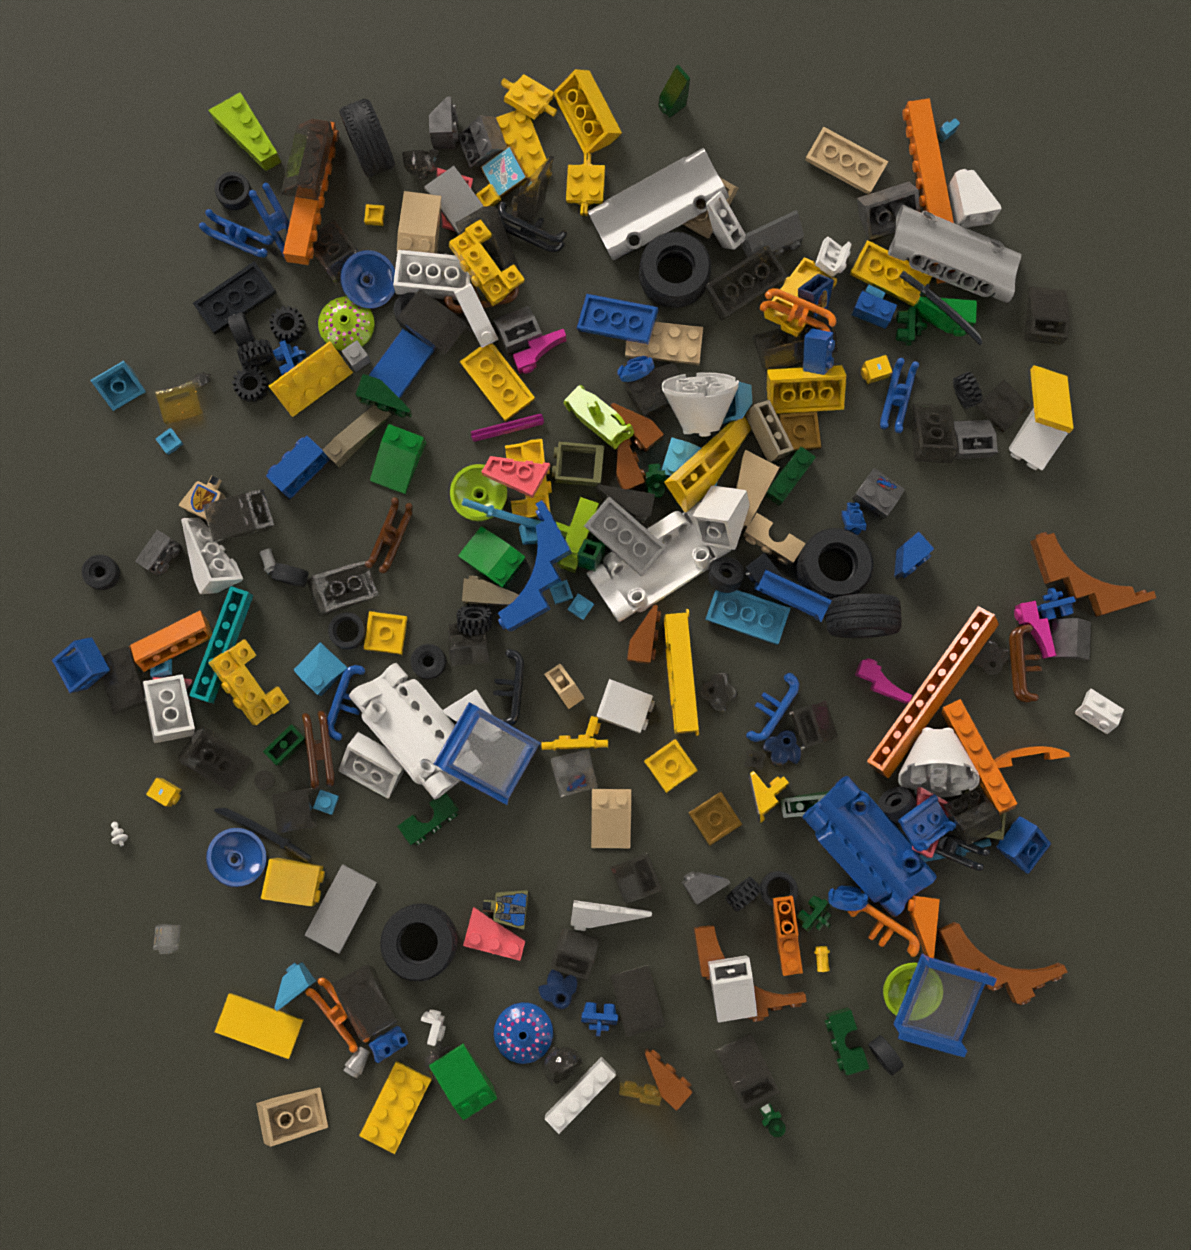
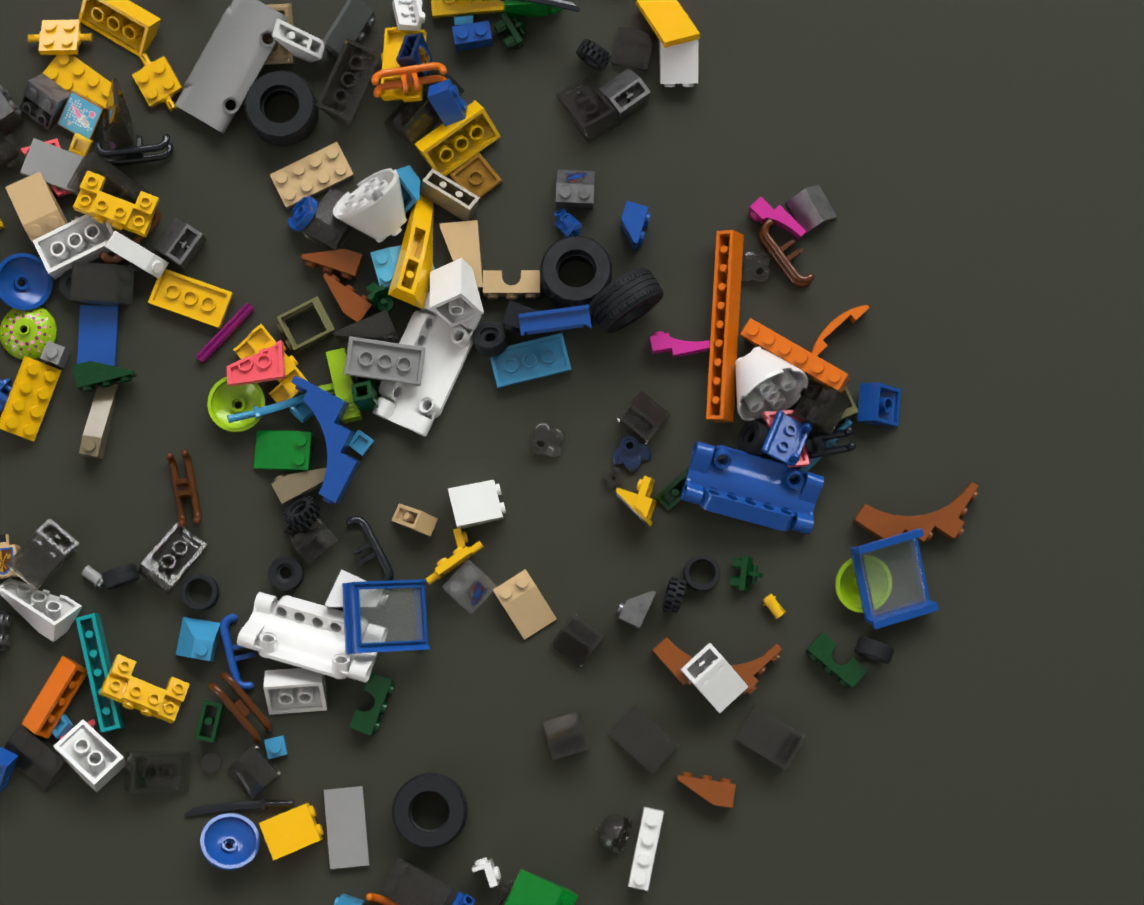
camera: 30 degrees left, 0 degrees up
(118, 835) = (116, 889): white hair -> none
(164, 792) = (132, 828): yellow brick -> none
(297, 467) = (67, 480): blue brick -> none
(385, 633) = (234, 573): yellow tile -> none
(397, 458) = (148, 419): green slope -> none
(492, 937) = (489, 767): coral wing -> none
(509, 908) = (487, 733): torso -> none
(527, 359) = (204, 264): dark pink slope -> none
(528, 1019) = (566, 814): blue dish -> none
(557, 986) = (570, 771): dark blue plate -> none
(580, 606) = (385, 444): dark azure plate -> none
(590, 1016) = (622, 777): blue hips -> none
(593, 914) = (560, 694): white wedge -> none
(598, 416) = (297, 274): piece -> none
(617, 319) = (259, 180): blue tile -> none
(641, 643) = (455, 439): dark orange slope -> none
(646, 1094) = (700, 810): clear yellow plate -> none
(670, 765) = (546, 528): yellow tile -> none
(680, 673) = (505, 445): yellow piece -> none
(715, 818) = (611, 548): pearl gold tile -> none
(773, 1121) = (816, 764): dark green hips -> none
(779, 712) = (608, 420): blue piece -> none
(787, 935) = (731, 605): orange slope -> none
(790, 476) = (491, 221): dark green arch -> none
(847, 898) = (762, 542): blue tile -> none
(876, 369) = (506, 85): yellow brick -> none
(898, 395) = (539, 95): blue piece -> none
(914, 944) = (803, 540): orange piece -> none
(924, 918) = (836, 518): orange slope -> none
(1065, 605) = (787, 183): blue hips -> none
(1100, 711) = (872, 254): white bracket -> none
(1103, 596) = (815, 156): dark orange arch -> none

